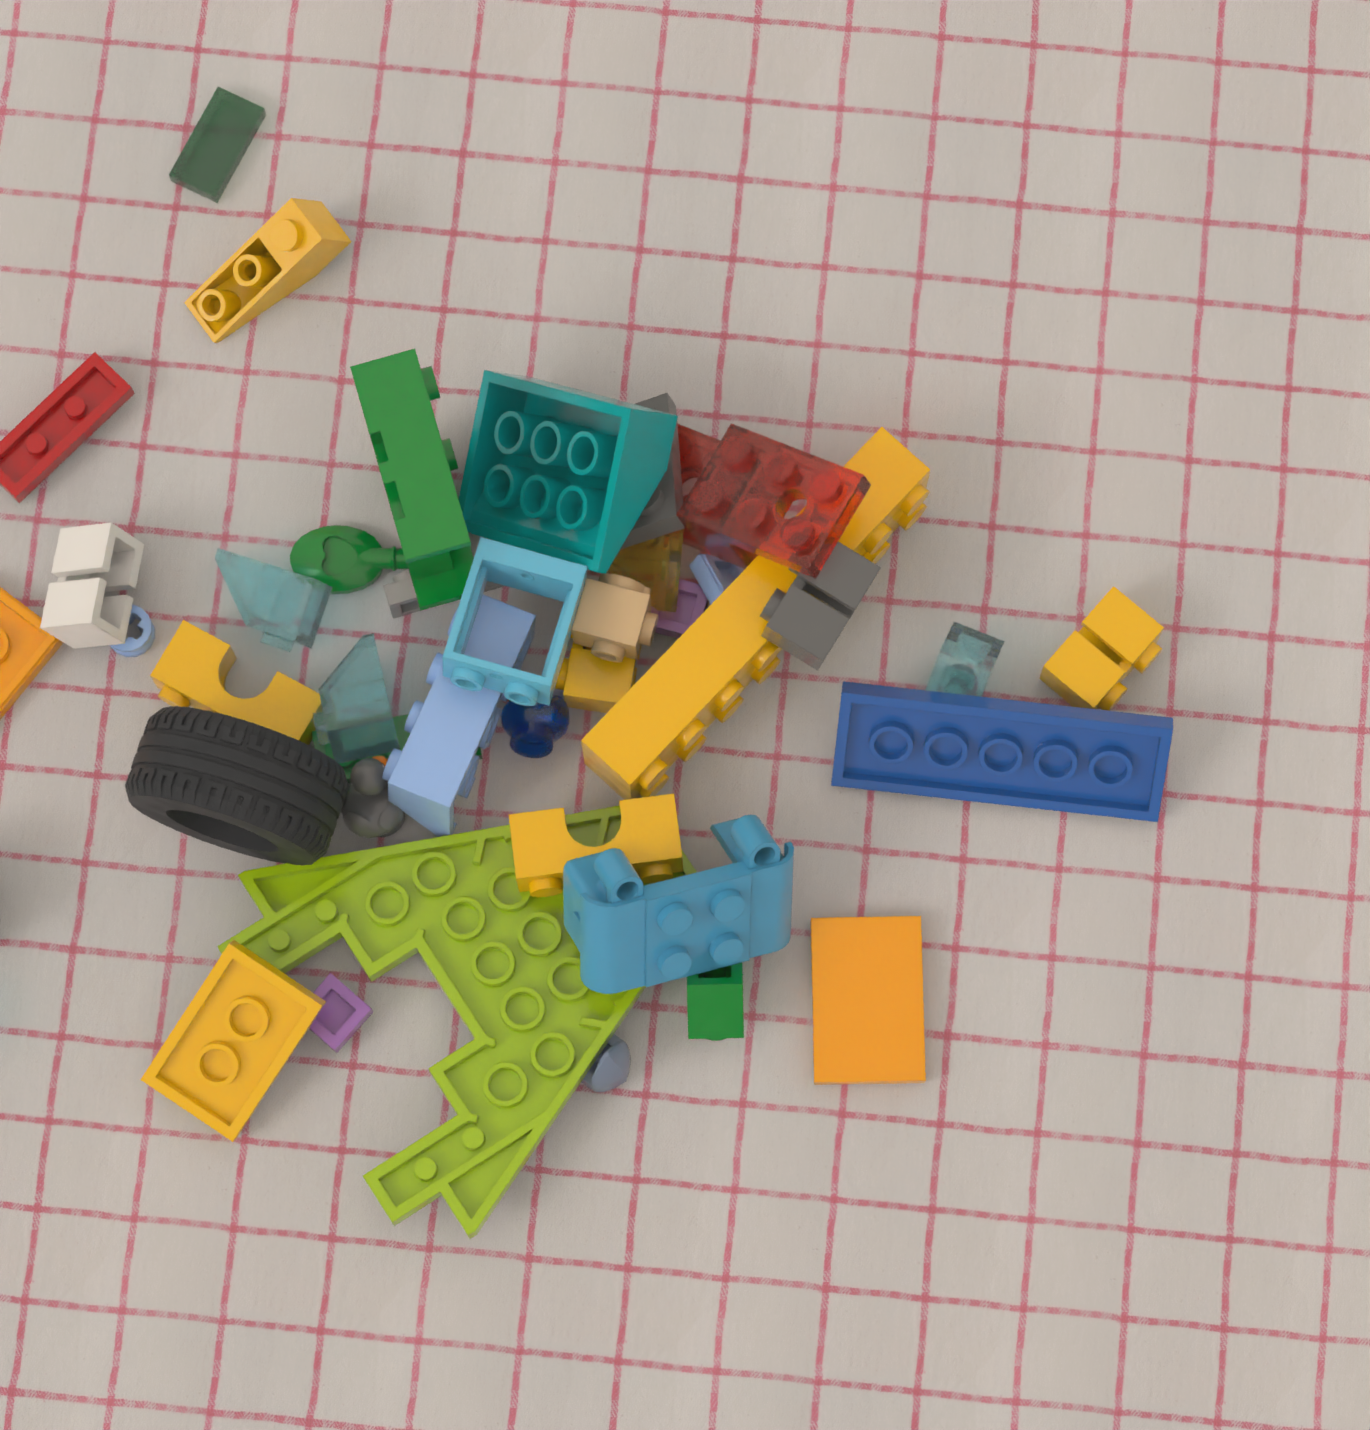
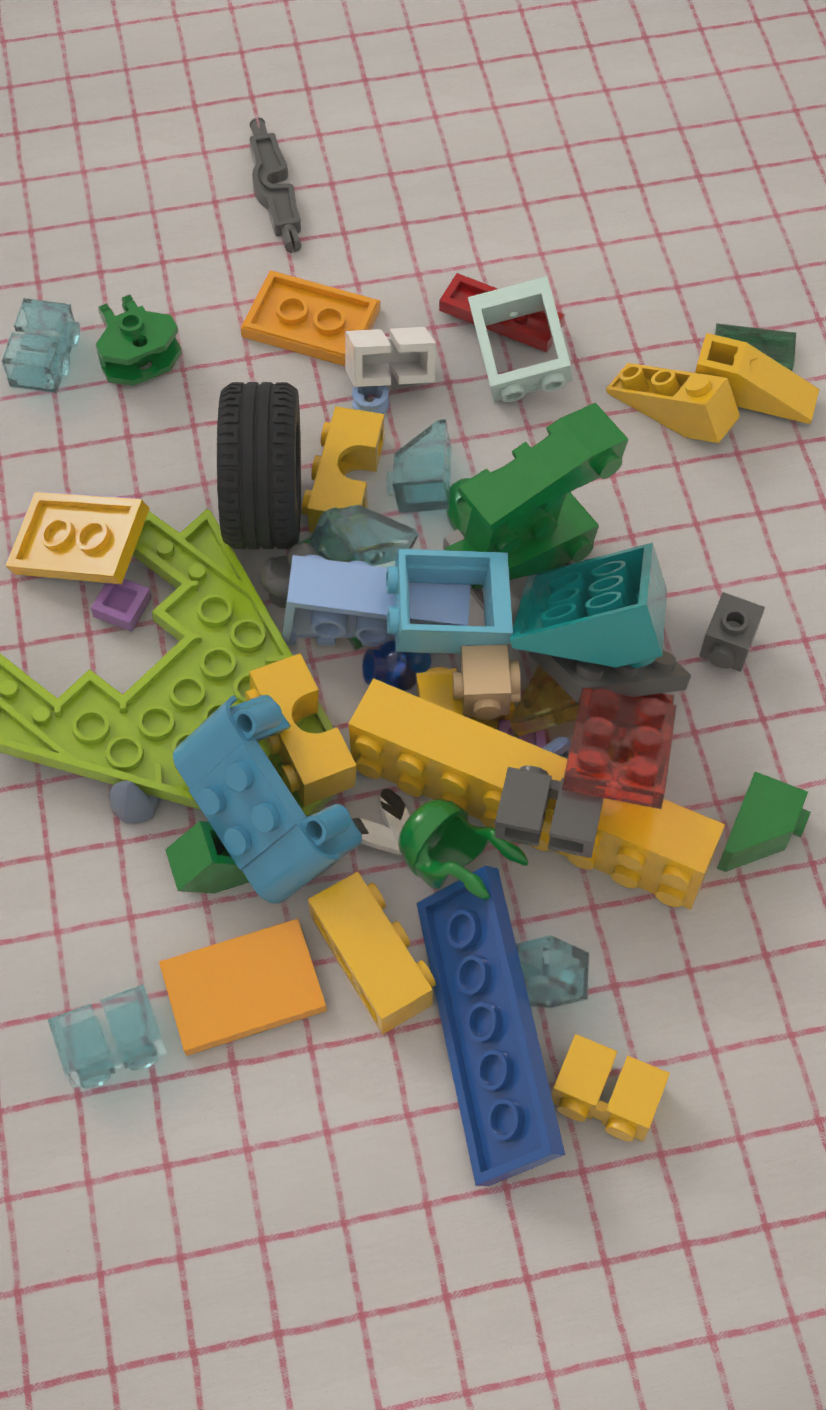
camera: 70 degrees right, 15 degrees down
(72, 412) = (509, 304): none -> light aqua window
(280, 165) = (757, 379): none -> yellow slope
(620, 328) = (731, 632): none -> dark grey brick
(774, 743) = (434, 840): none -> green hair
(855, 382) = (765, 822): none -> green slope
(877, 848) = (372, 951): none -> yellow brick
(890, 1127) = (84, 1047): none -> clear light blue piece

